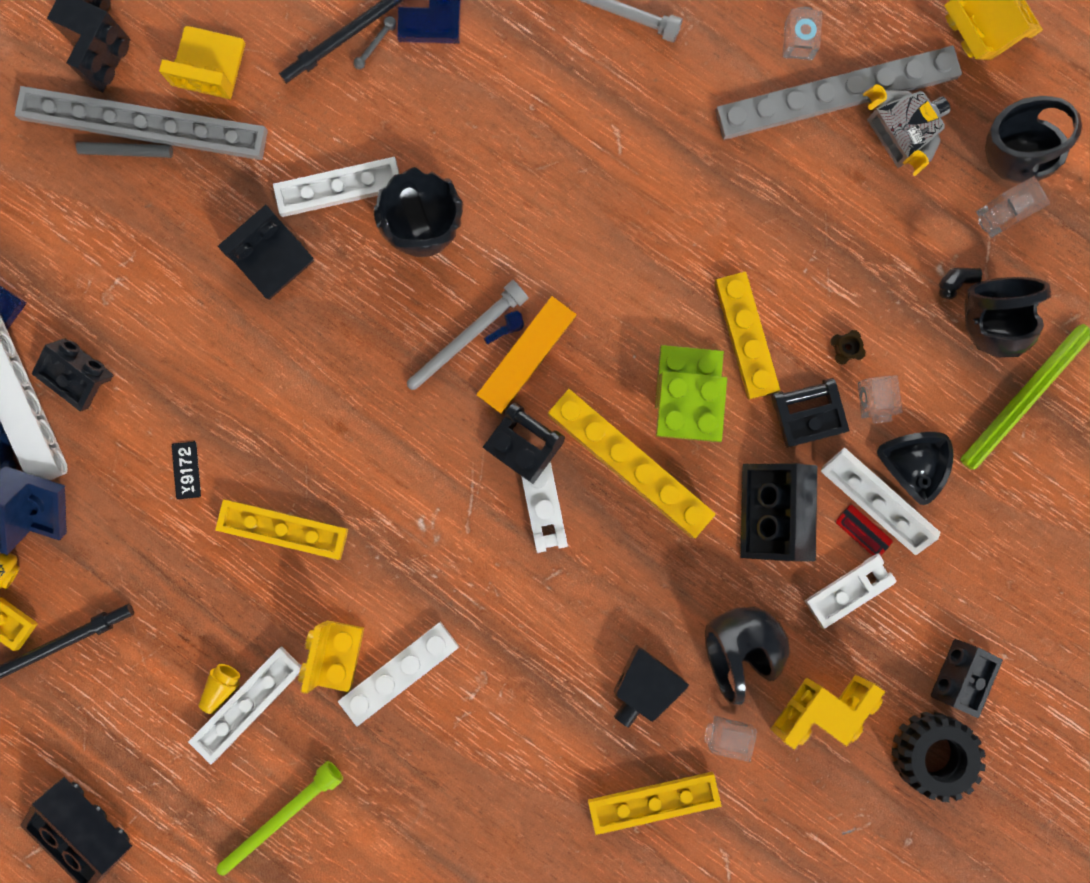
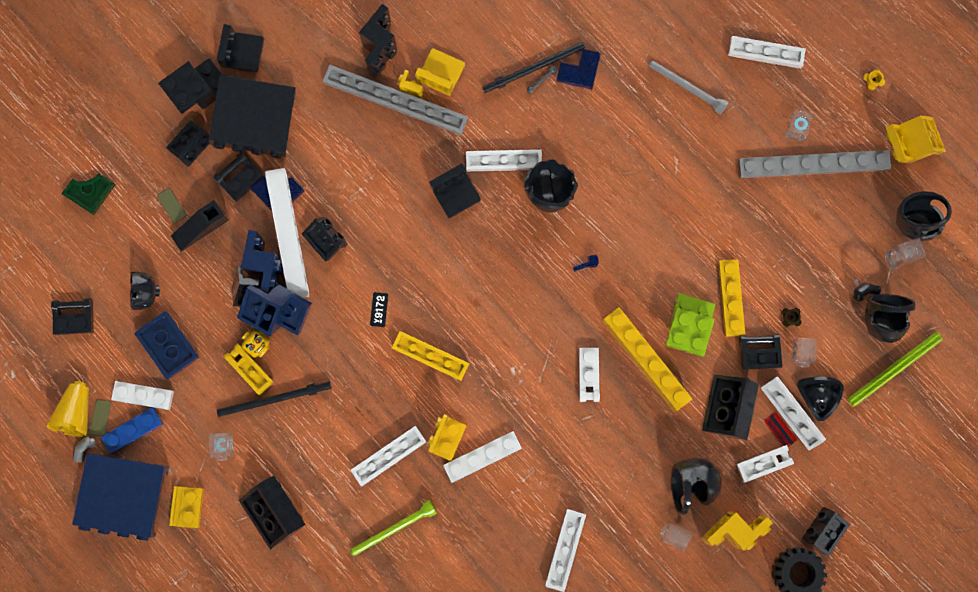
camera: 15 degrees right, 5 degrees down
(124, 149) = (381, 113): dark grey bar -> none
(160, 96) = (412, 88): none -> yellow bracket
(219, 686) = (374, 442): yellow cone -> none
(511, 297) = (594, 246): light grey piece -> none
(518, 452) = (580, 338): black plate -> none
(526, 355) = (596, 282): light orange tile -> none
(560, 796) = (565, 550): none -> white plate
(646, 688) = (630, 495): black torso -> none
(654, 803) = (621, 566): yellow plate -> none
(907, 124) = (852, 192): torso -> none

